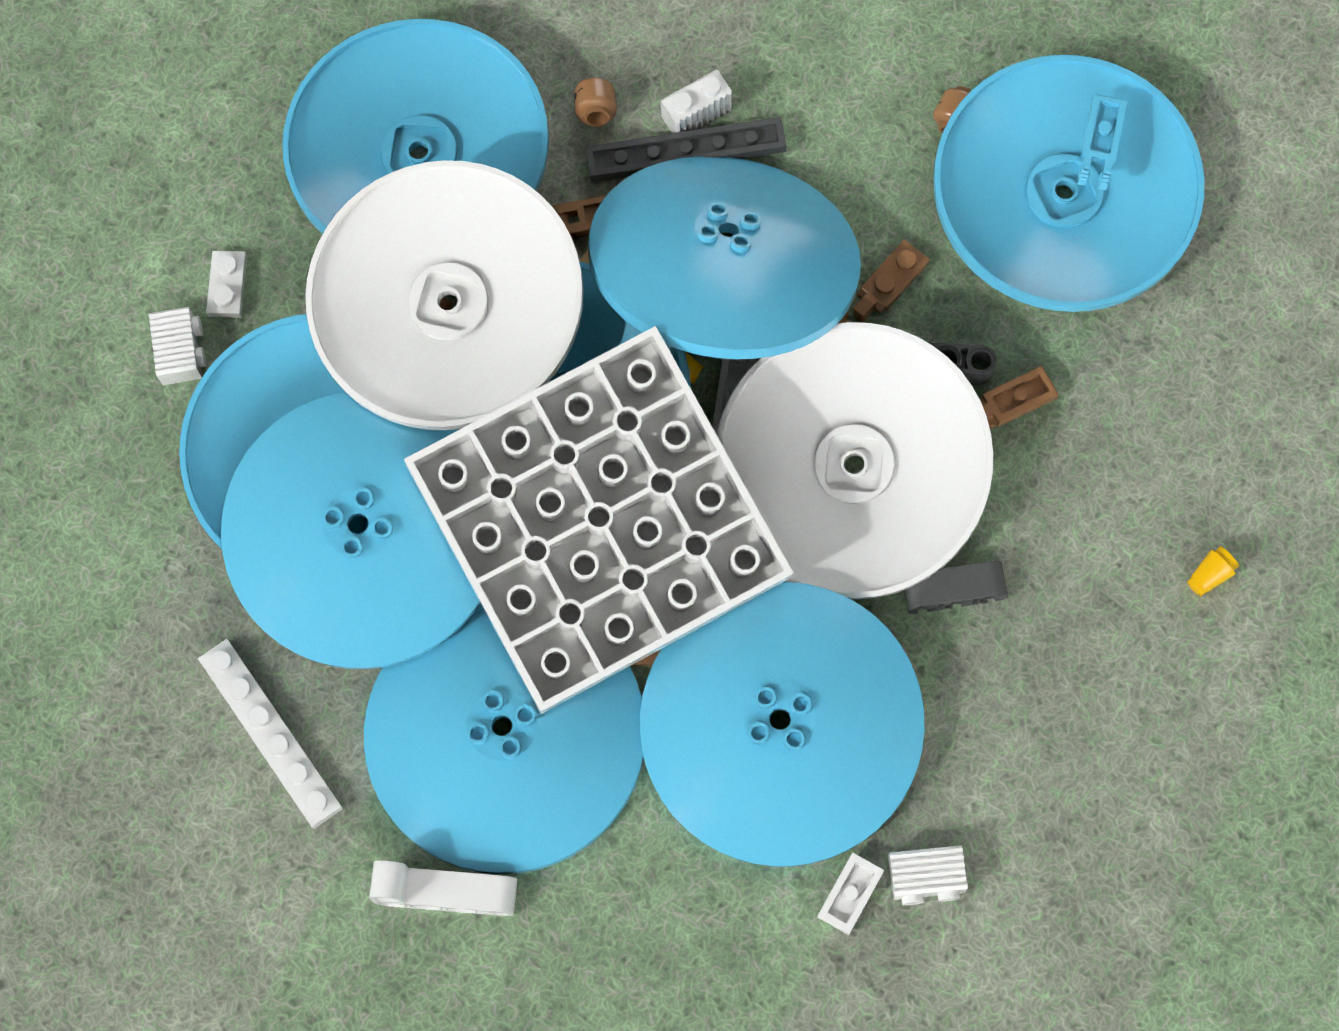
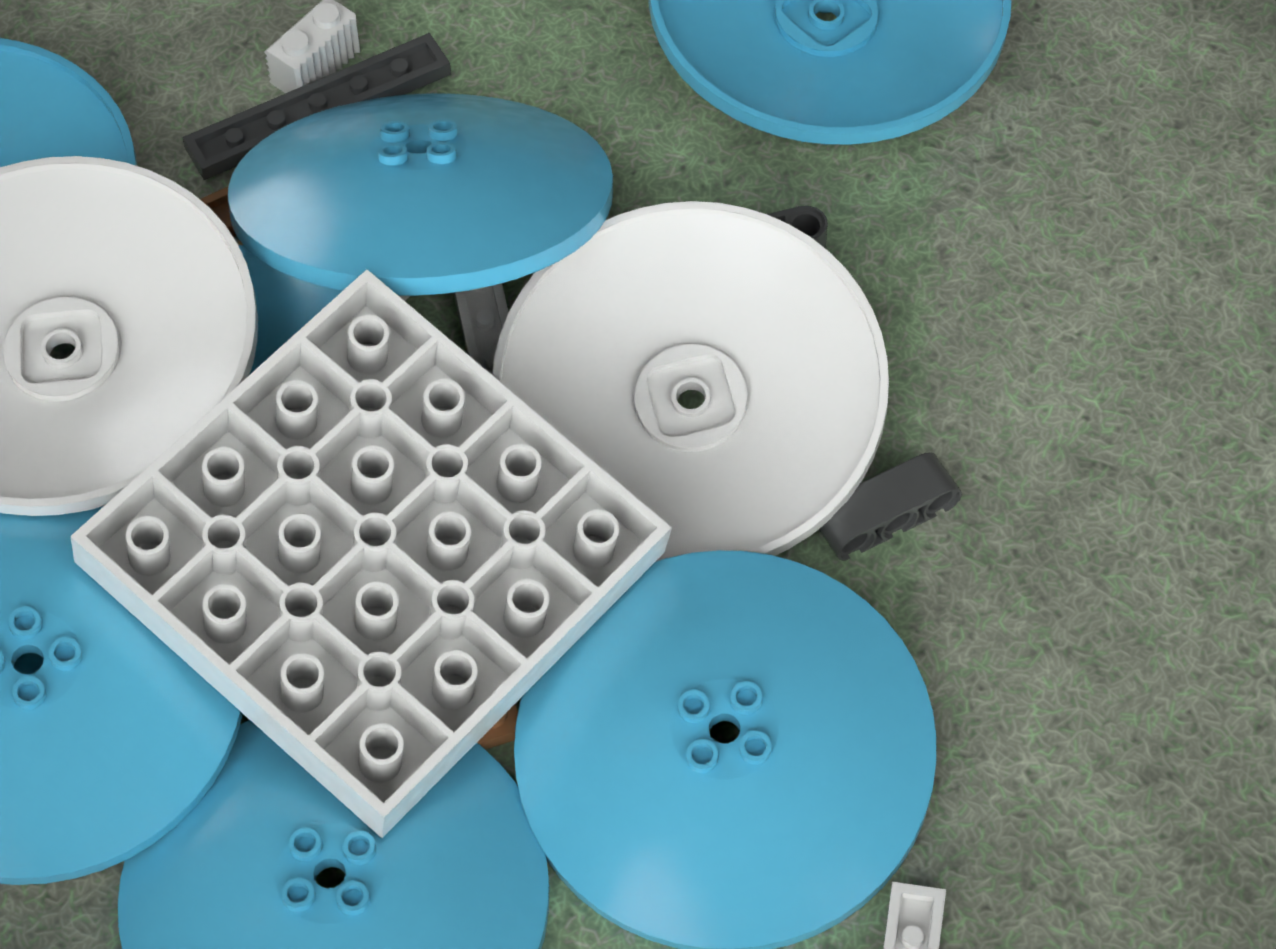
camera: 25 degrees left, 15 degrees down
(595, 101) = (176, 84): medium nougat head -> none
(890, 280) = (649, 170): medium nougat hinge -> none
(927, 874) = (1007, 875): white brick -> none
(1018, 397) = (878, 252): medium nougat hinge -> none
(1213, 571) = (1210, 381): yellow cone -> none

